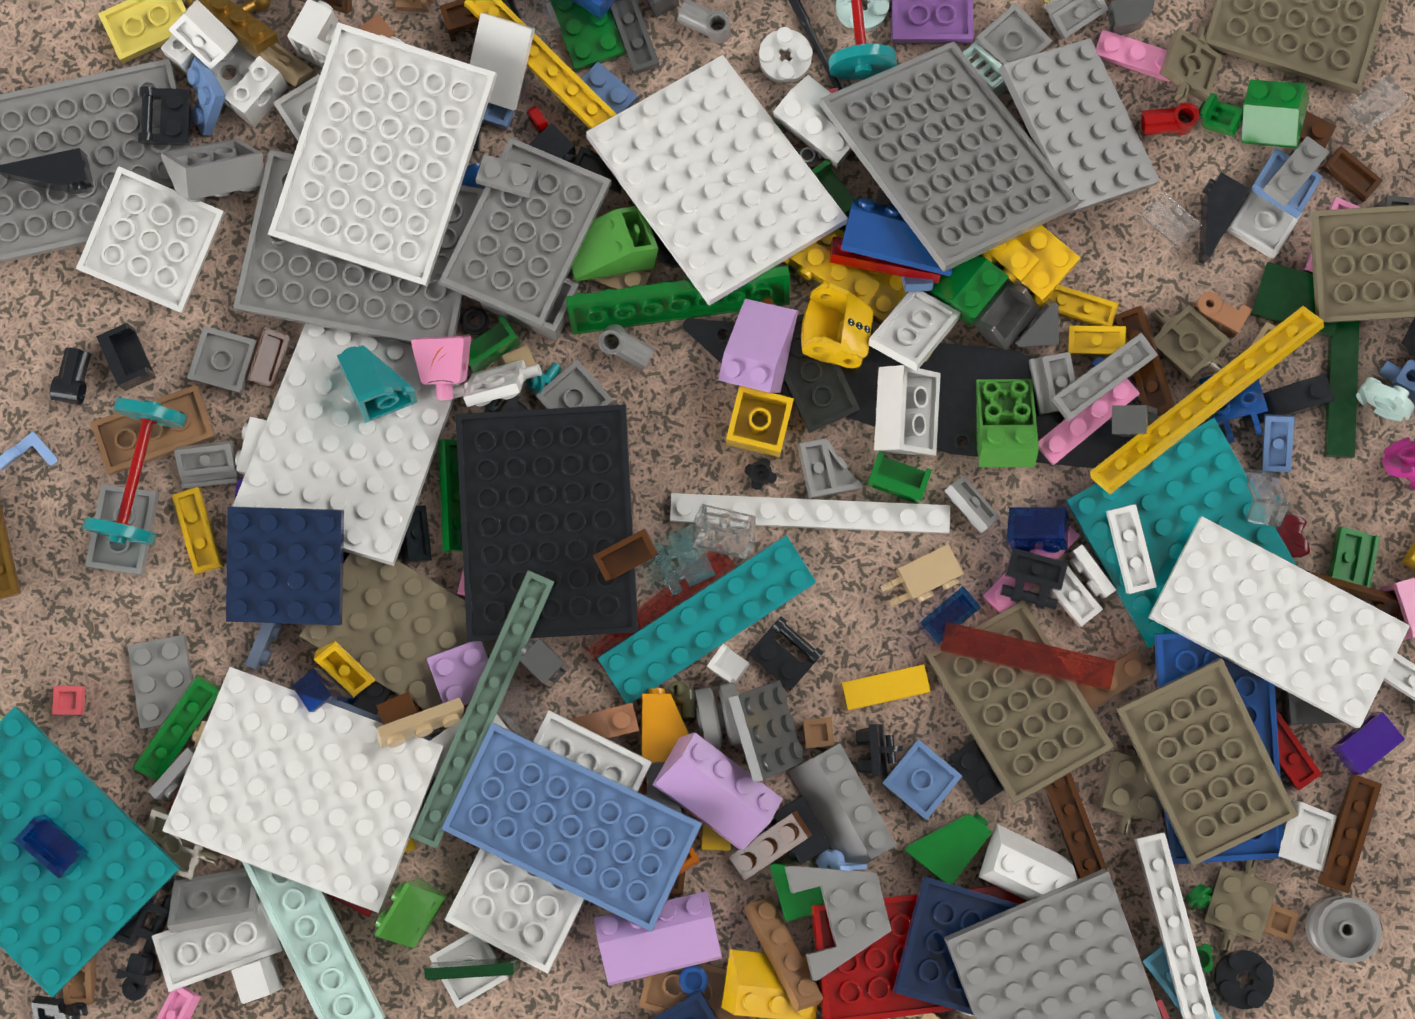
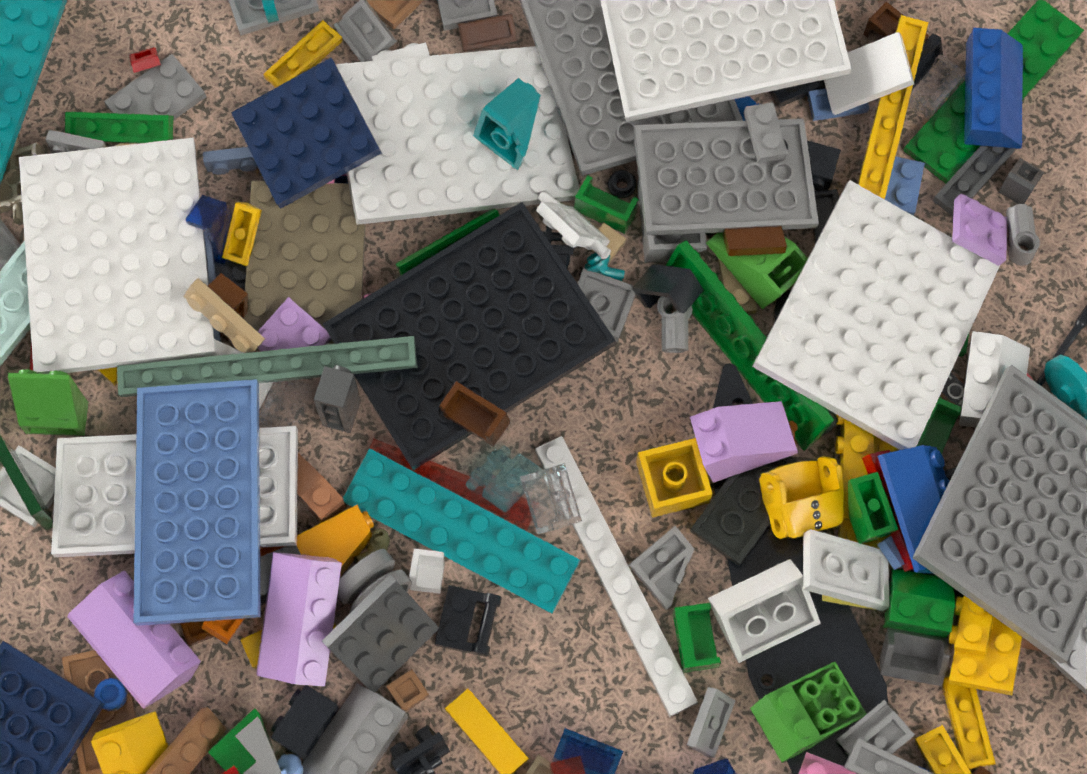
camera: 60 degrees right, 10 degrees down
(68, 700) = (99, 32): coral plate -> none
(120, 672) = (144, 59): none -> red tile
(417, 541) = (396, 235): black plate -> none
(442, 362) = (564, 168): bright pink torso -> none
(537, 119) = (838, 137): red tile -> none
(593, 333) = (670, 282): none -> black panel
(597, 240) = (754, 241): none -> reddish brown tile
(685, 52) = (980, 229): none -> lavender plate
(763, 466) = (626, 499): black plate -> none
(770, 845) = (274, 699): plate -> none
(785, 71) = (1048, 311): white plate -> none
(877, 281) = (869, 509): none -> green slope
(925, 575) = (614, 713): tan hinge -> none
(1042, 328) = (922, 698): dark grey slope -> none

